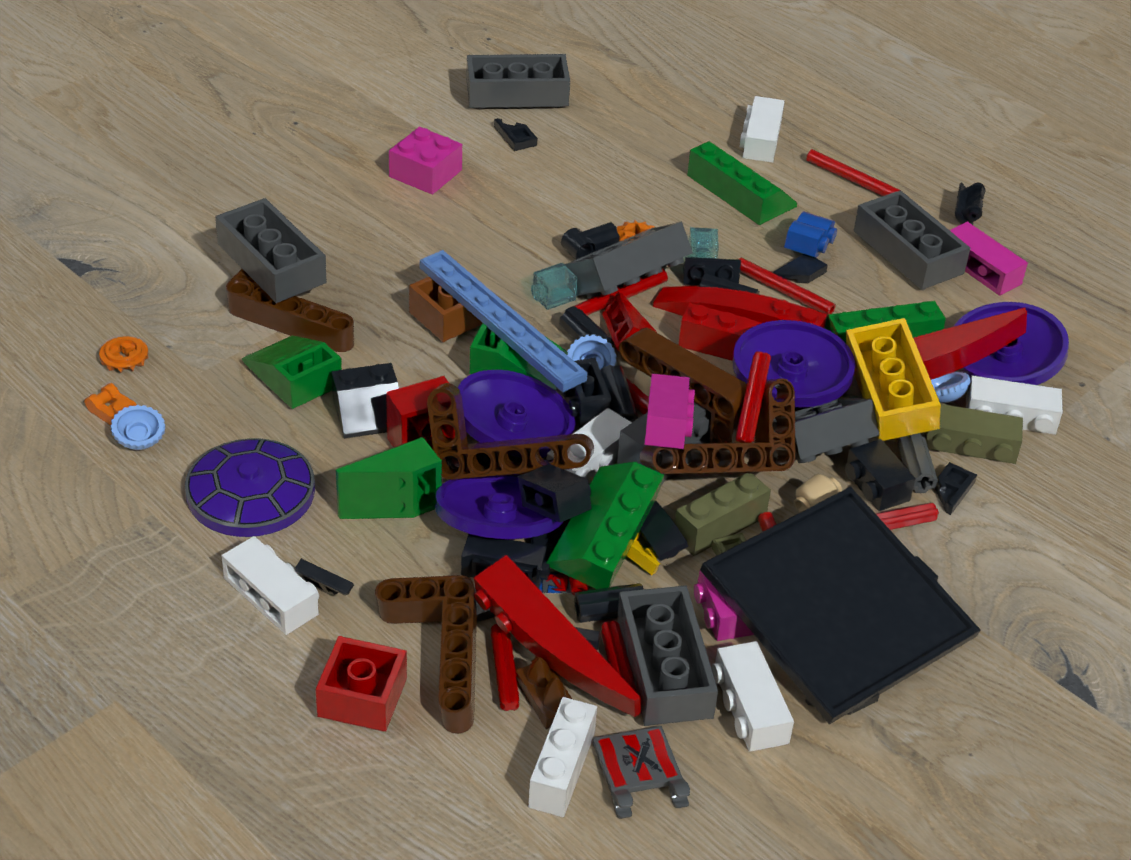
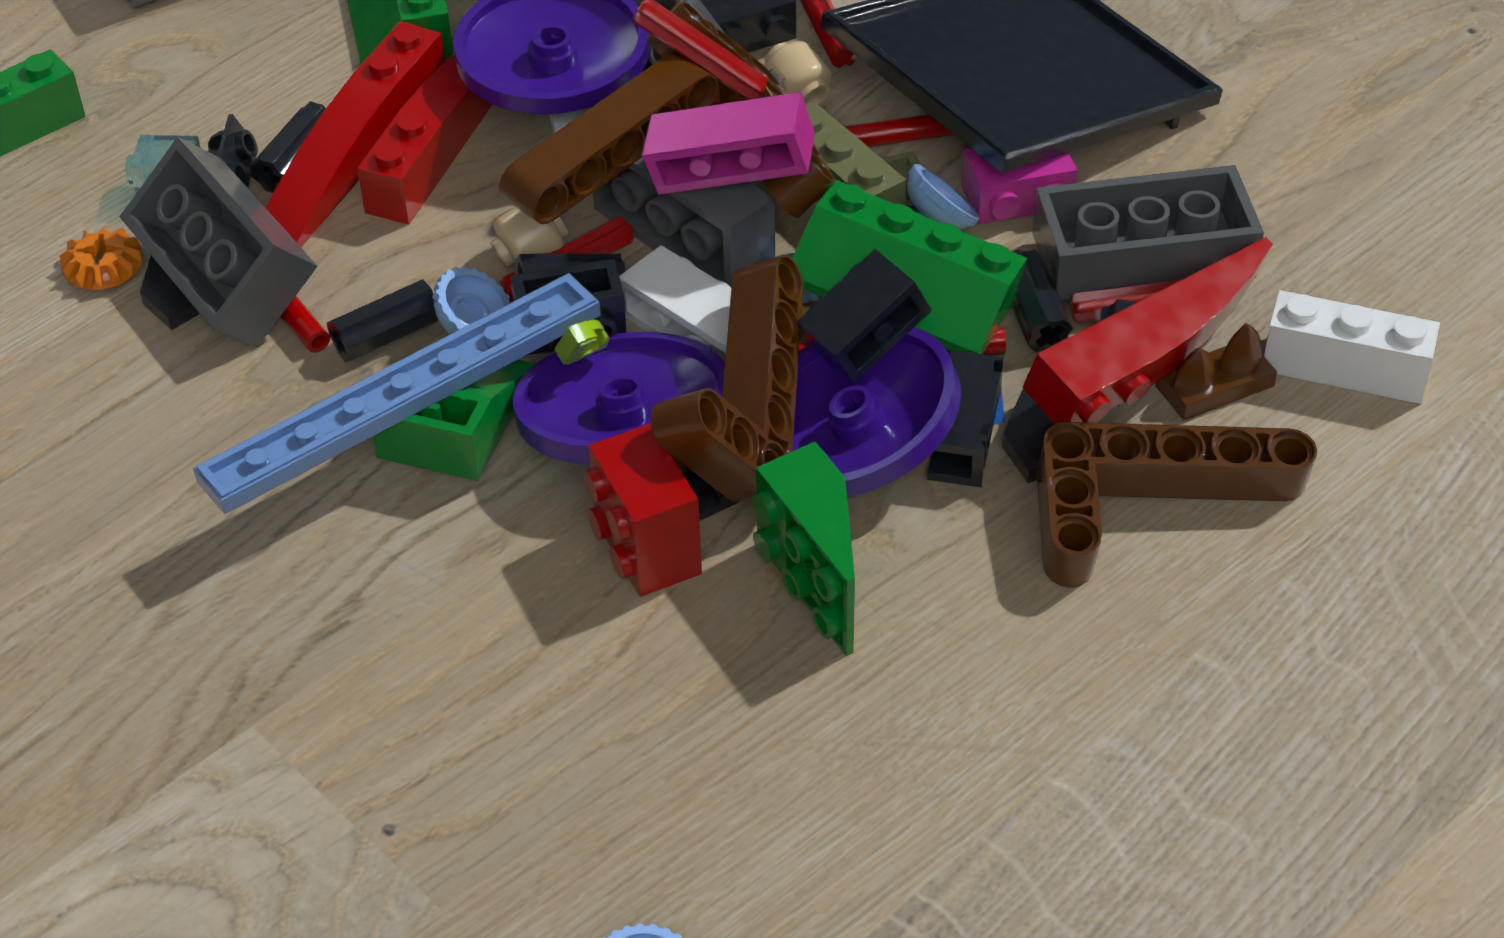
camera: 85 degrees left, 5 degrees up
(250, 487) = (788, 785): dark purple dish -> none
(270, 585) = (1052, 718): white brick -> none
(271, 250) = (152, 742): dark grey brick -> none
(291, 316) = (265, 782): reddish brown beam -> none
(295, 368) = (464, 725): green slope -> none
(323, 579) = (1039, 639): black tile -> none
(361, 683) = (1270, 569): red brick -> none
(362, 399) = (567, 611): black slope -> none
(439, 310) = (315, 510): dark orange brick -> none
(505, 669) = (1228, 413): red axle -> none
(551, 392) = (581, 341): none -> lime tile
(554, 286) = (250, 358): clear light blue brick -> none
(591, 240) = (118, 315): black piece -> none
(623, 319) = (389, 260): red slope -> none
(638, 763) = (1338, 274): dark grey flag -> none
(693, 551) = (938, 199): none -> light blue hat
(752, 696) = (1200, 145): white brick -> none
(786, 287) = (277, 86): red piece -> none
(803, 268) = (228, 68): black tile -> none
(810, 234) = (154, 43): blue brick -> none

